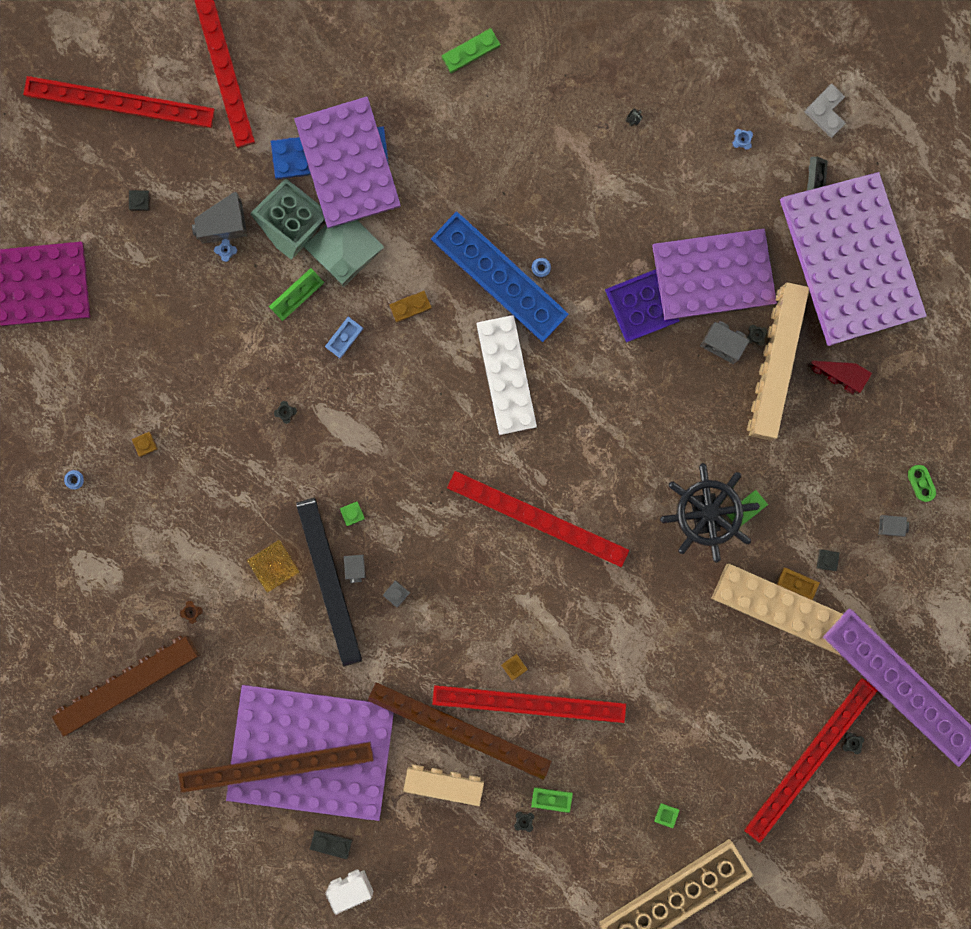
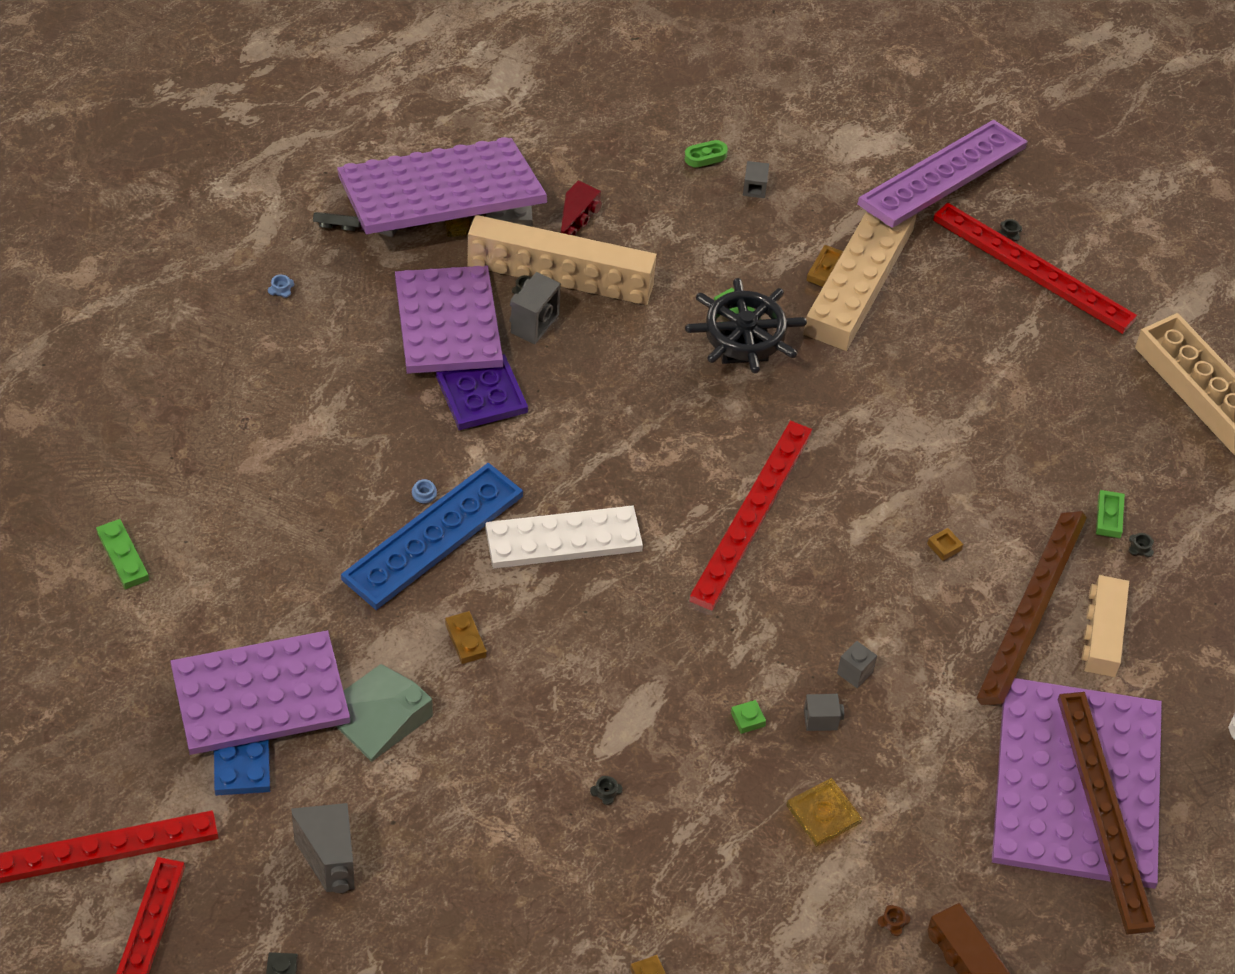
camera: 90 degrees left, 35 degrees down
(230, 250) = (372, 860): medium blue plate -> none
(288, 218) = (333, 766): sand green slope -> none
(296, 294) = (440, 766): bright green plate -> none
(329, 582) = (842, 744): black beam -> none
(331, 844) = (1200, 761): pearl dark grey plate -> none
(344, 337) = (504, 712): medium blue plate -> none
(529, 704) = (991, 535): red plate -> none
(634, 117) = (238, 387): pearl dark grey plate -> none
(666, 815) = (1115, 401): bright green plate -> none
(822, 111) = (255, 214): light grey plate -> none
(828, 560) = (796, 240): pearl dark grey plate -> none

